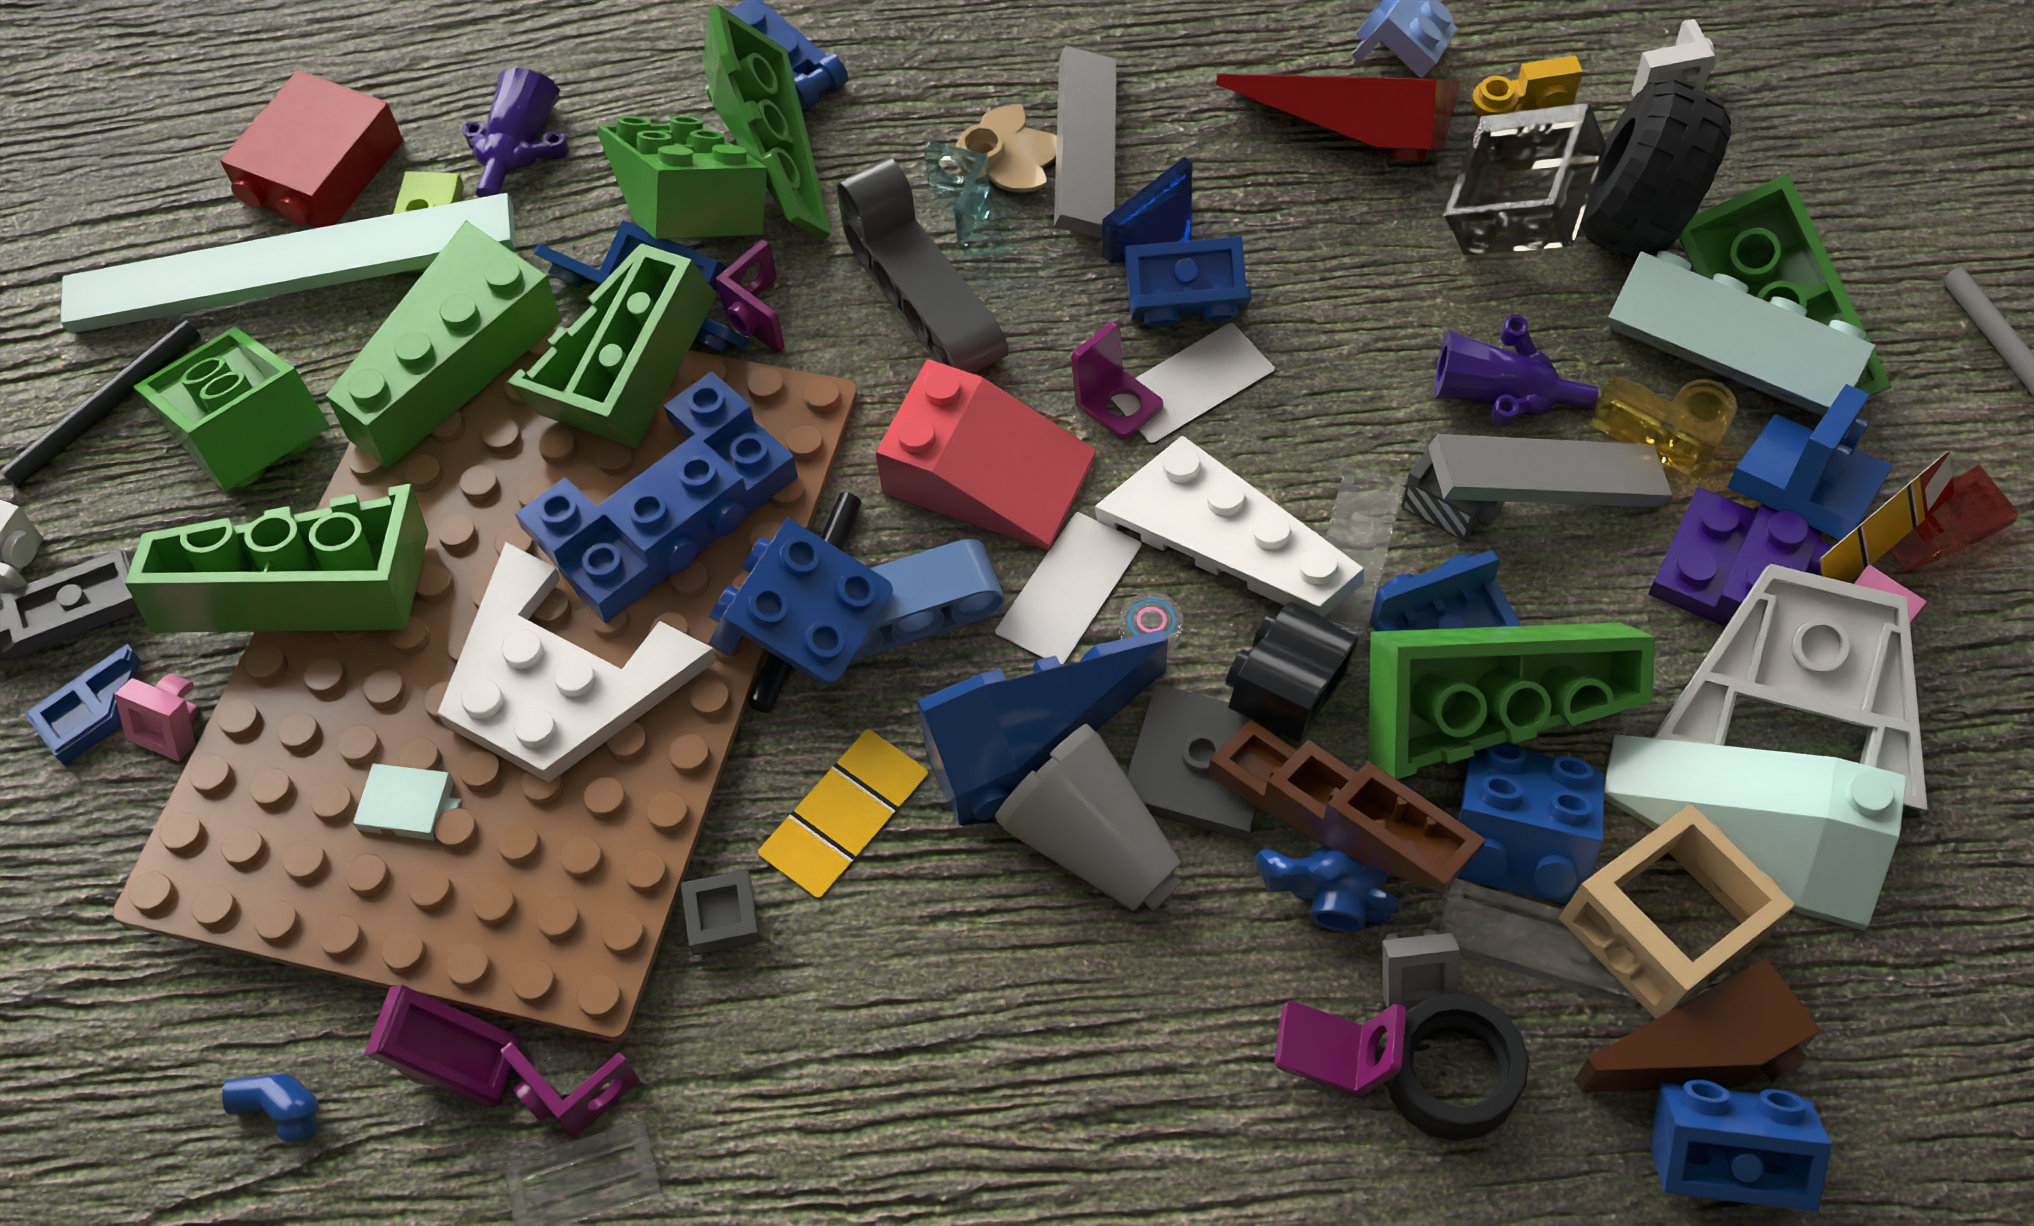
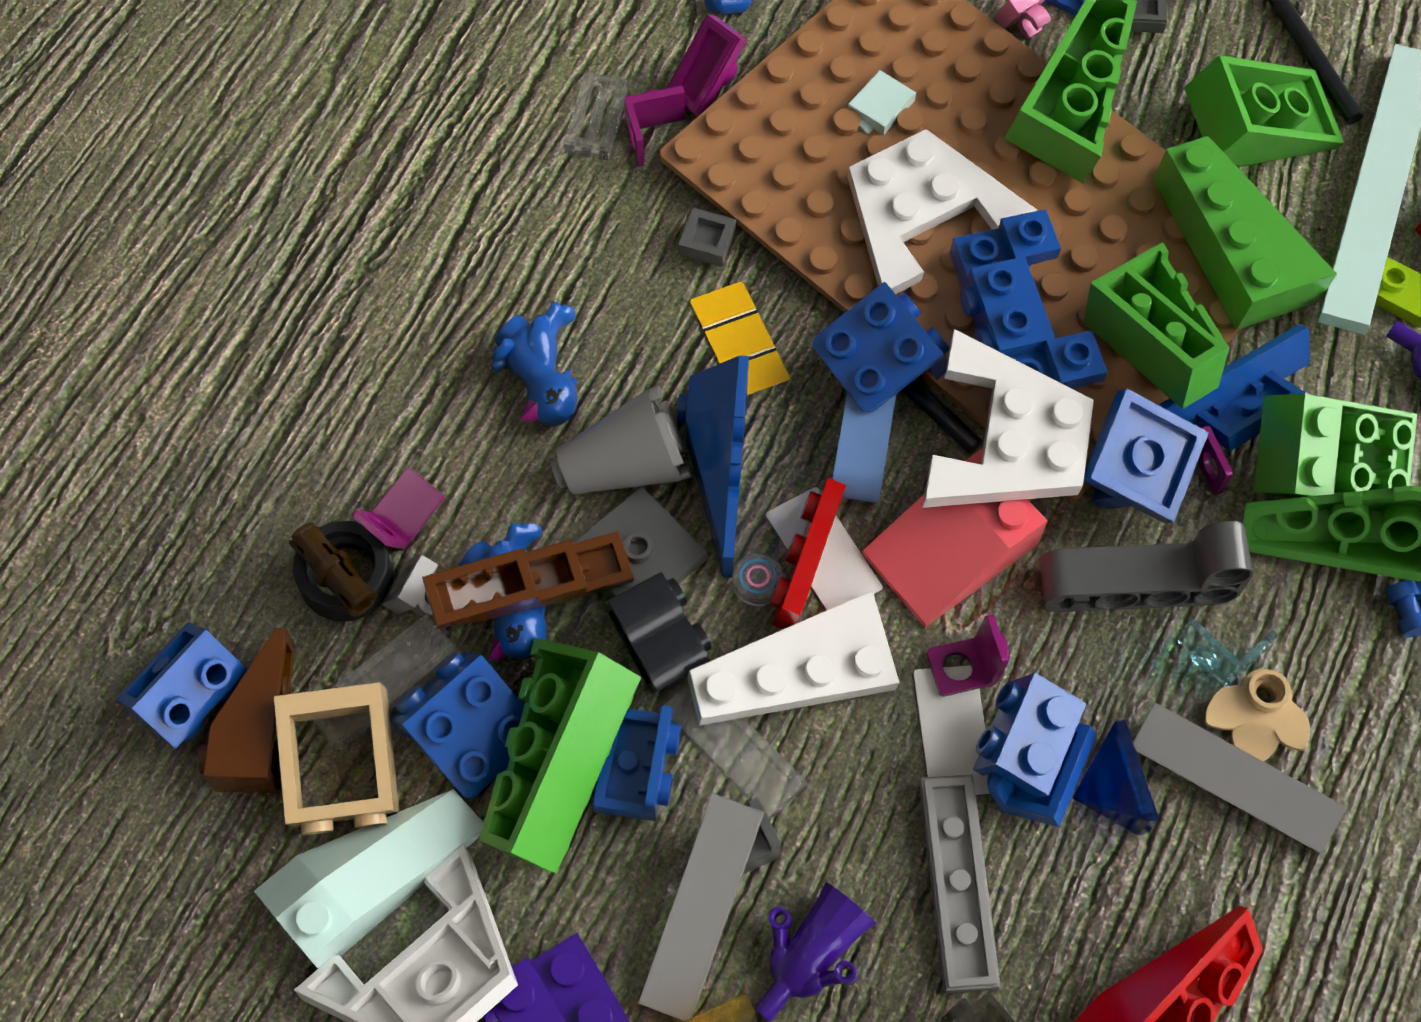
camera: 115 degrees right, 5 degrees up
(796, 316) = (1144, 457): none -> bracket
(841, 401) = (1031, 437): none -> white wing
(1024, 1017) = (532, 356): none -> blue animal
(1098, 574) = (806, 553): none -> red plate
(1173, 289) = (1029, 733): none -> bracket
(1344, 306) = (959, 884): none -> light grey tile
(1482, 1045) = (333, 569): none -> dark brown pin

